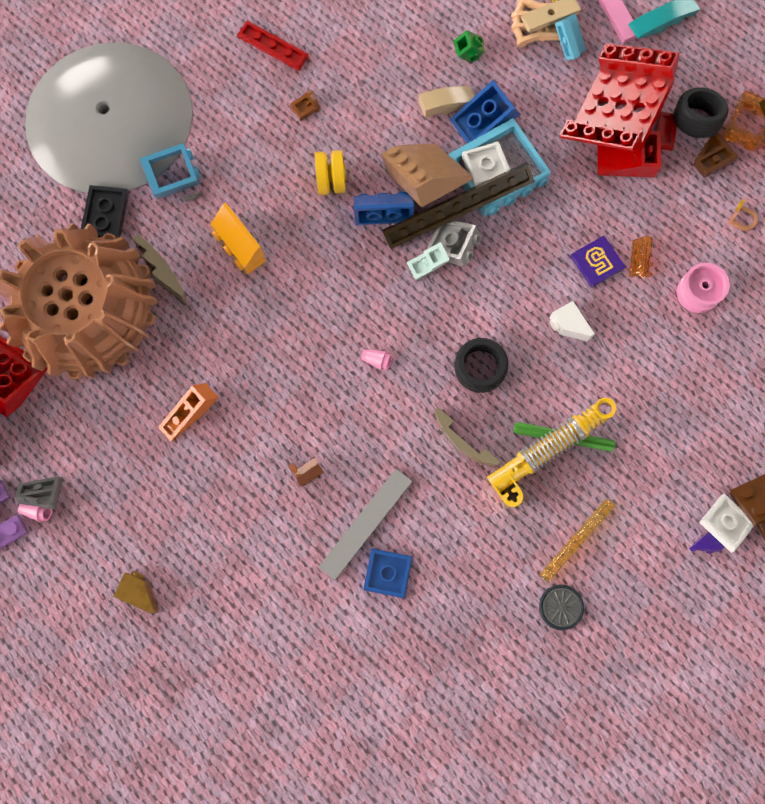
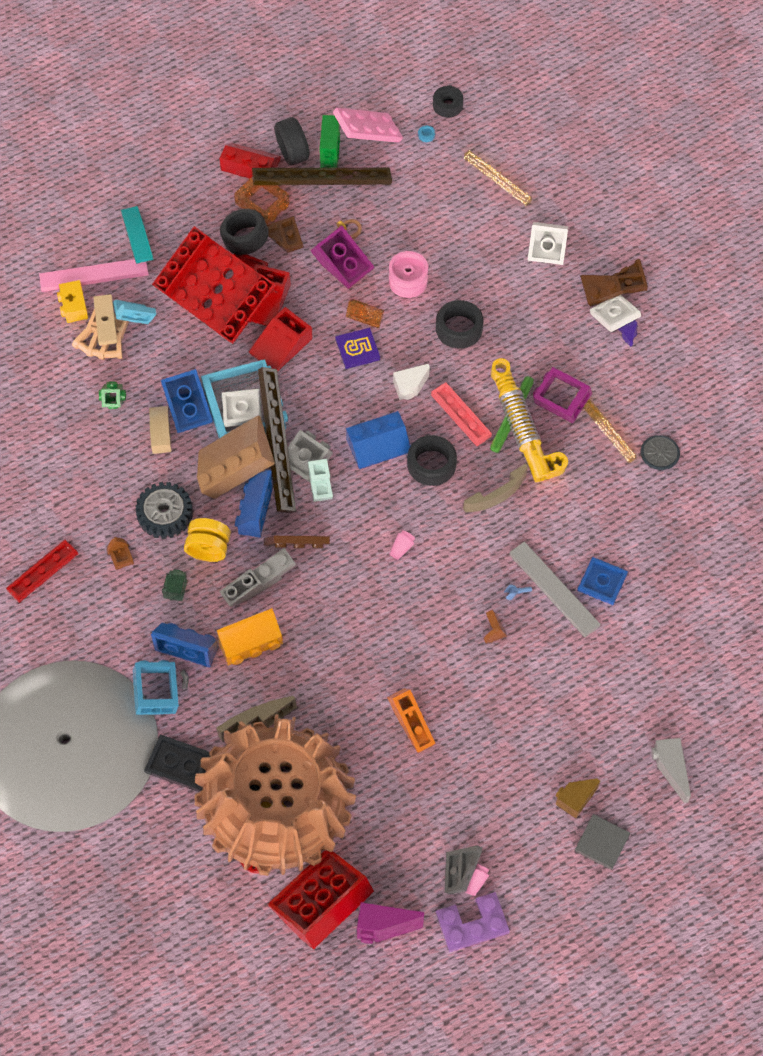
camera: 80 degrees left, 15 degrees down
(96, 628) = (602, 842): none -> dark grey tile
(190, 685) = (671, 763): none -> light grey slope
(219, 181) = (185, 644): none -> blue slope
(281, 160) = (175, 585): none -> clear green window
(304, 232) = (258, 580): none -> light grey slope
(351, 250) = (297, 541): none -> reddish brown wing
(353, 484) = (513, 590): none -> medium blue hand
(354, 117) = (159, 498): none -> wheel
(491, 306) = (378, 440): none -> blue slope
(547, 383) = (461, 414): none -> coral plate
(580, 183) = (282, 339): none -> red slope
(592, 503) = (576, 405): none -> magenta window
(669, 340) = (459, 339): none -> black tyre
(703, 218) = (342, 257): none -> magenta slope

